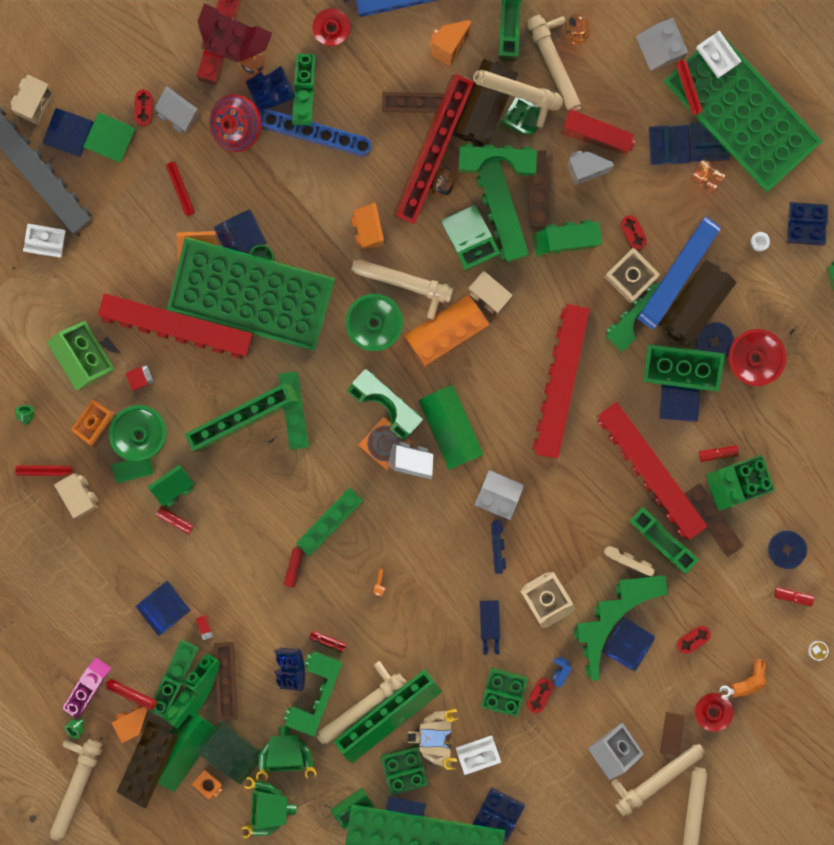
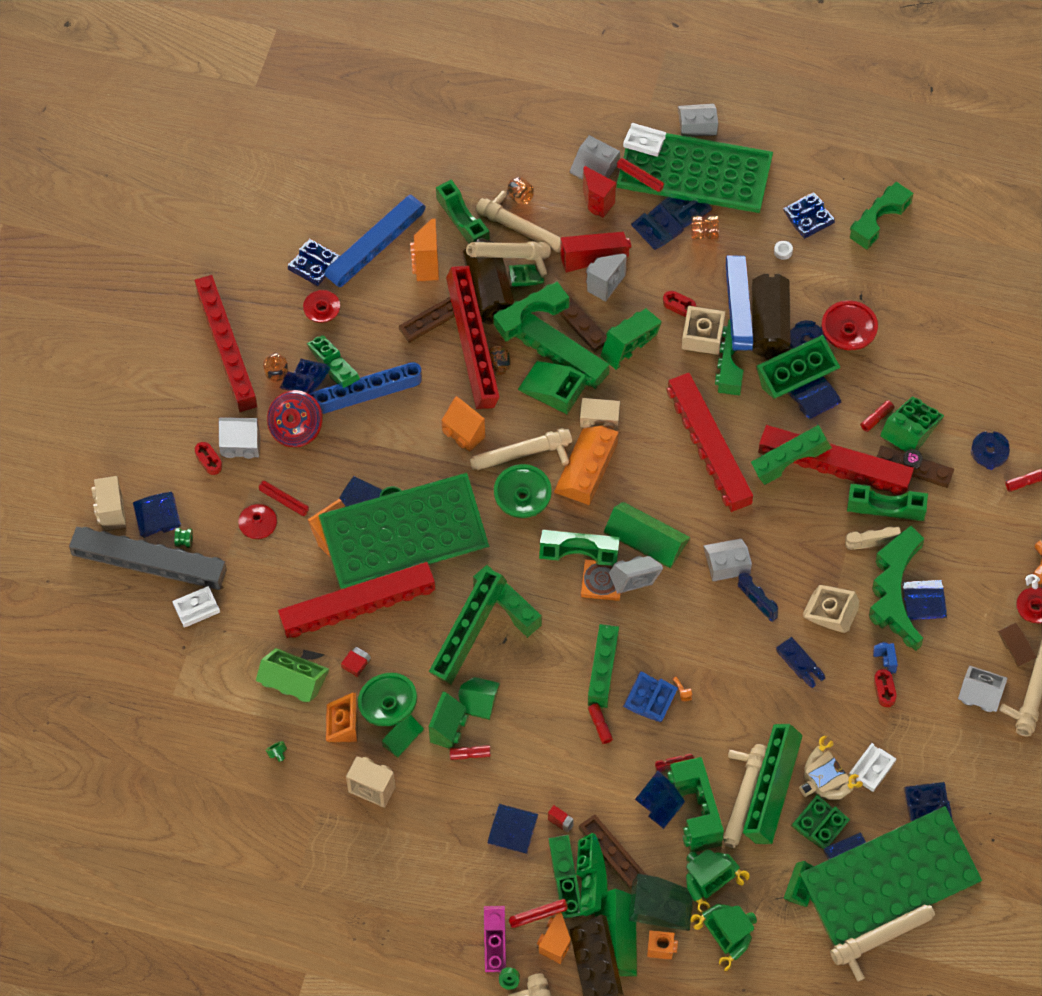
camera: 25 degrees left, 25 degrees down
(42, 470) = (324, 787): red axle -> none
(74, 170) = (183, 537): none -> green wheel
(109, 137) = (195, 495): green slope -> none
(152, 201) = (257, 528): none -> red dish
(215, 476) = (478, 696): none -> green slope
(230, 37) = (246, 356): dark red piece -> none
(349, 572) = (650, 697): none -> blue slope
(504, 692) = (853, 705): green slope -> none
(615, 445) = (808, 444): none -> green arch
(640, 80) = (598, 192): none -> red slope
(691, 636) = (970, 563): red beam -> none
(714, 516) = (912, 458): none -> clear smoke tile
(783, 61) = (698, 120): none -> light grey slope

